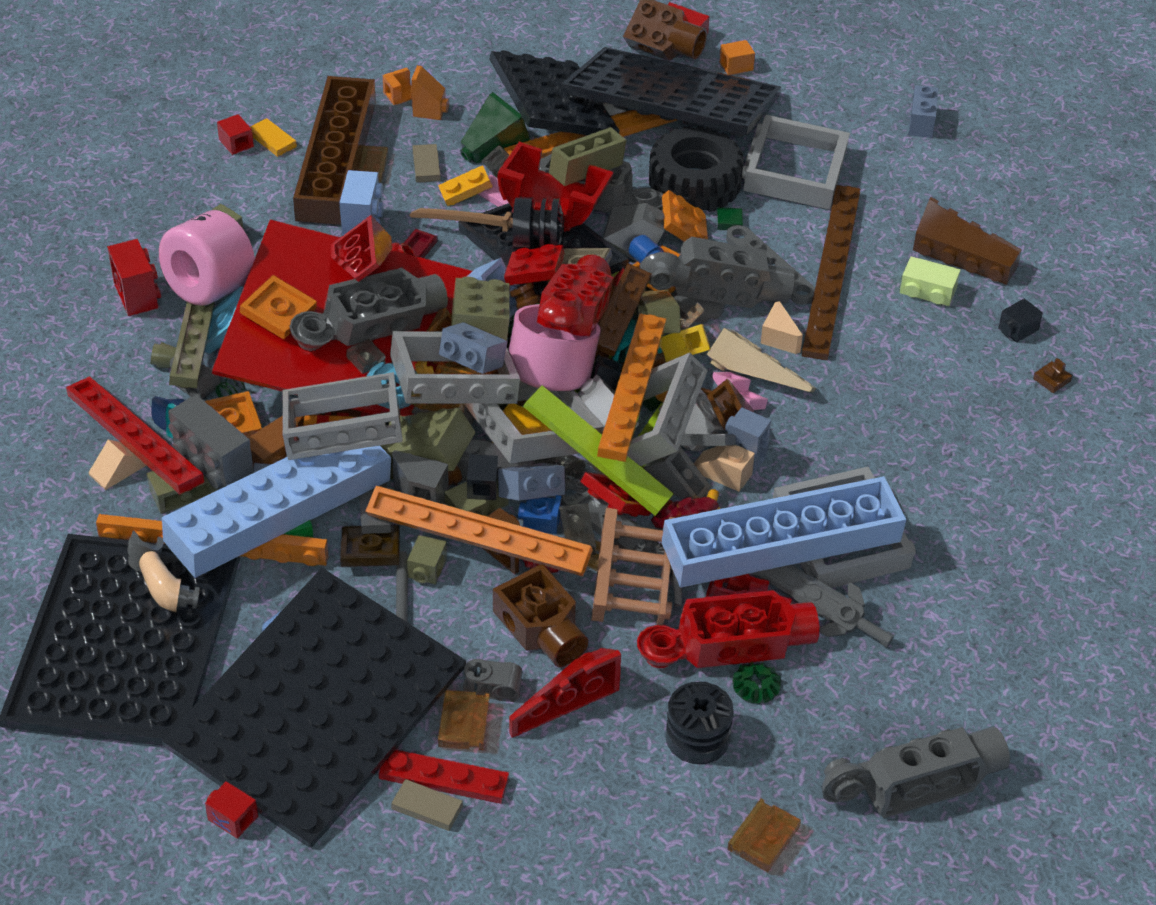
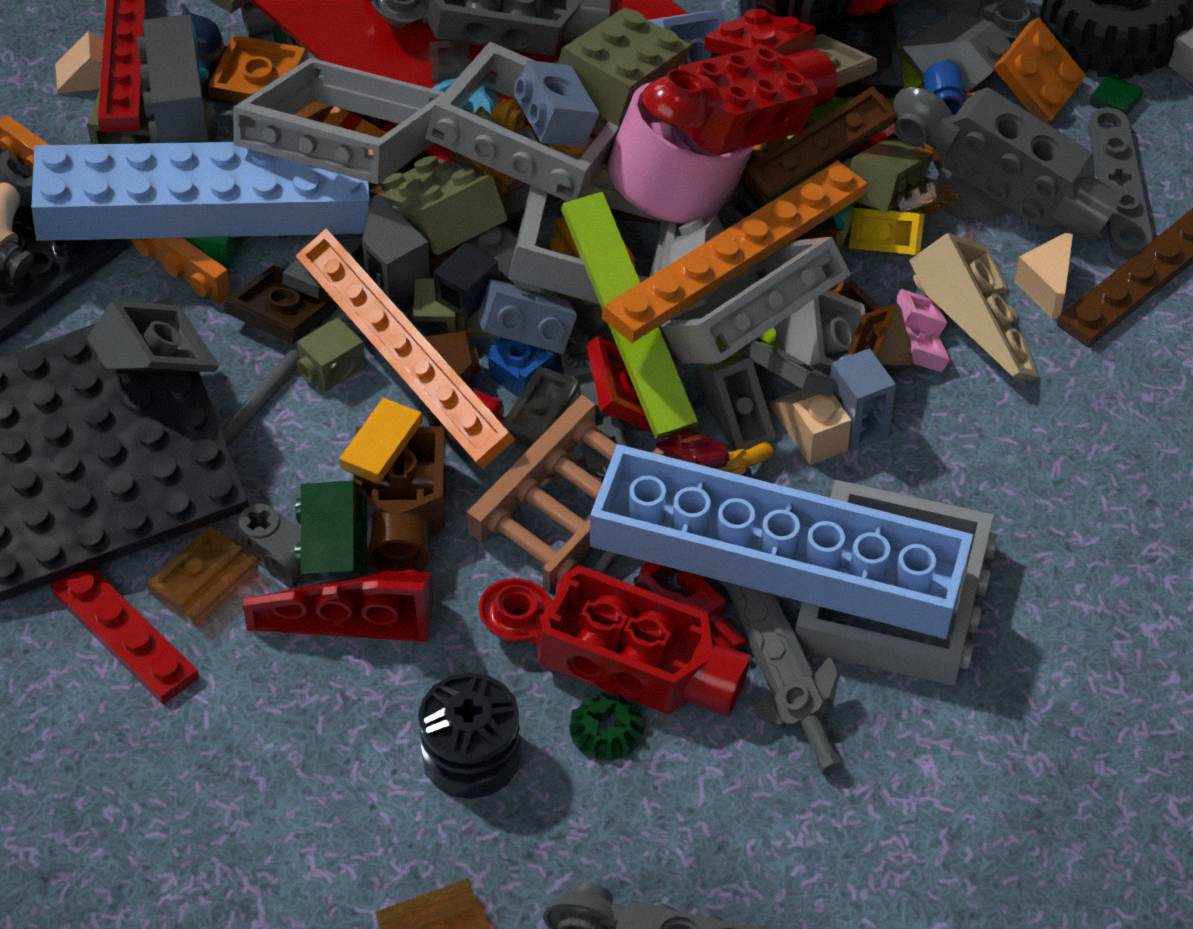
camera: 35 degrees right, 5 degrees up
(341, 595) = (149, 339): none -> dark grey slope
(427, 805) = (73, 656): dark tan tile -> none
(517, 588) = (380, 440): none -> light orange tile
(532, 651) = (332, 530): none -> dark green brick

